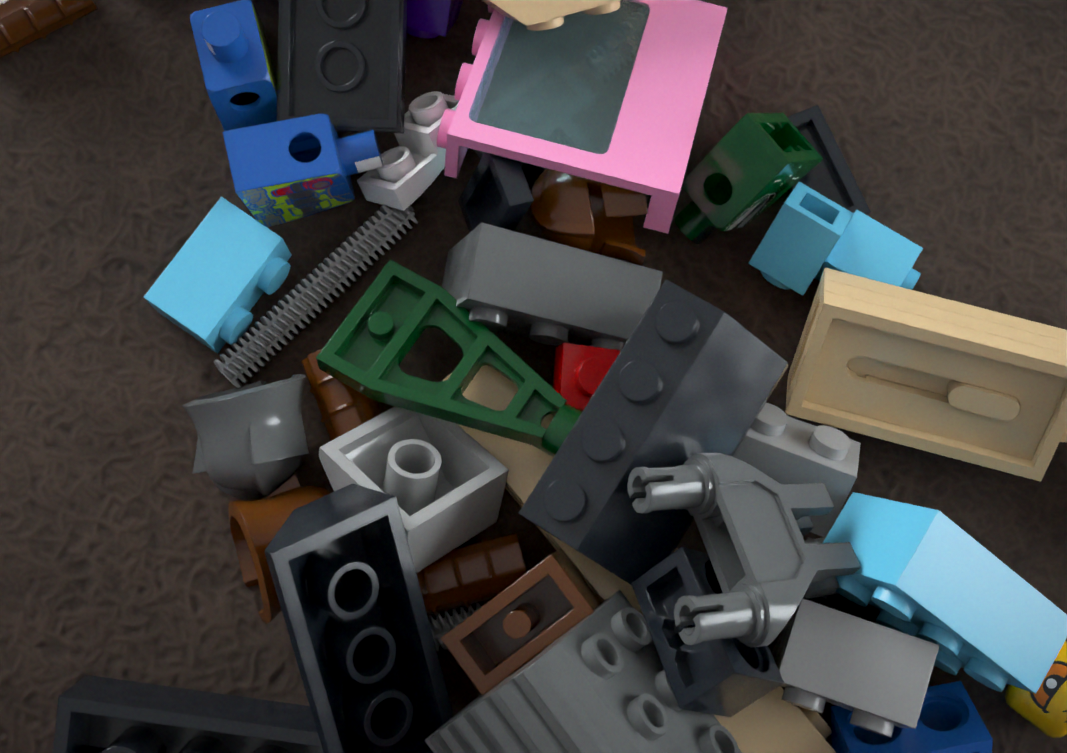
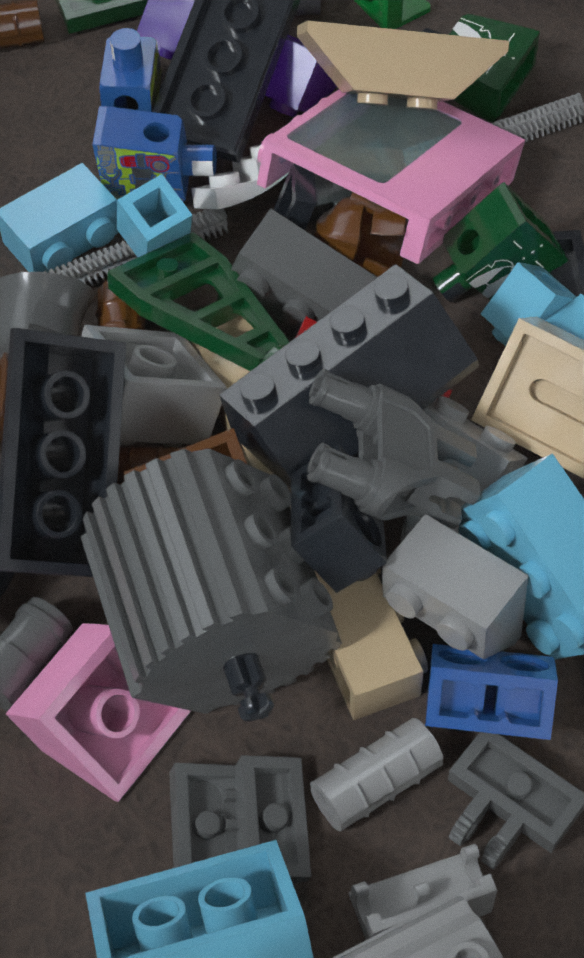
camera: 20 degrees right, 20 degrees down
(343, 265) = (152, 216): none -> medium azure brick

